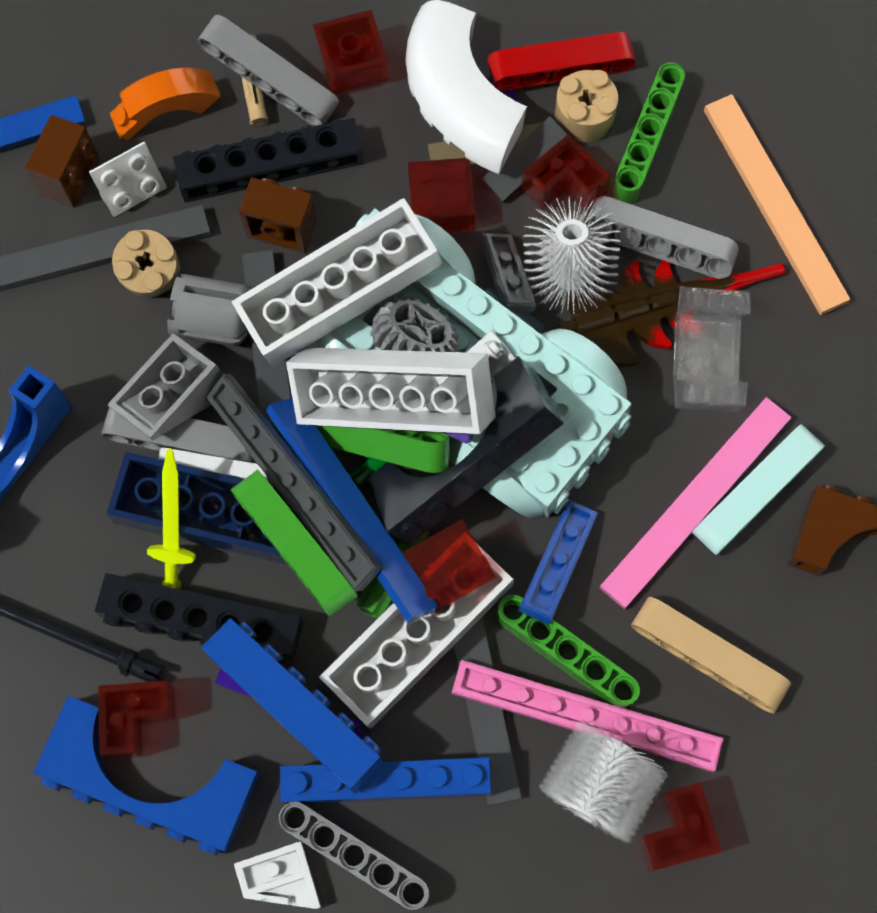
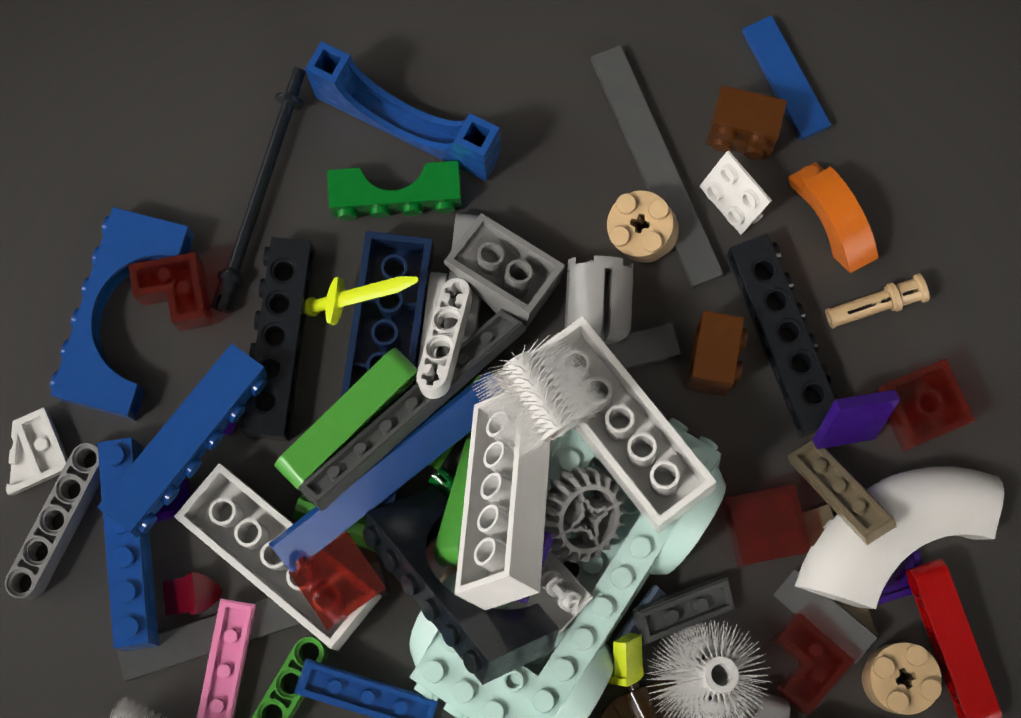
camera: 85 degrees right, 5 degrees up
(63, 531) = (354, 195): none -> green arch
(227, 443) = (444, 337): none -> white beam
(267, 71) = (884, 317): light grey beam -> none
(305, 330) = (539, 395): none -> white piece
(356, 105) = (855, 419): none -> dark purple tile
(419, 123) = (842, 492): none -> dark tan tile
(443, 726) = (190, 594): none -> dark red tile
(548, 319) = (627, 660): none -> neon yellow tile

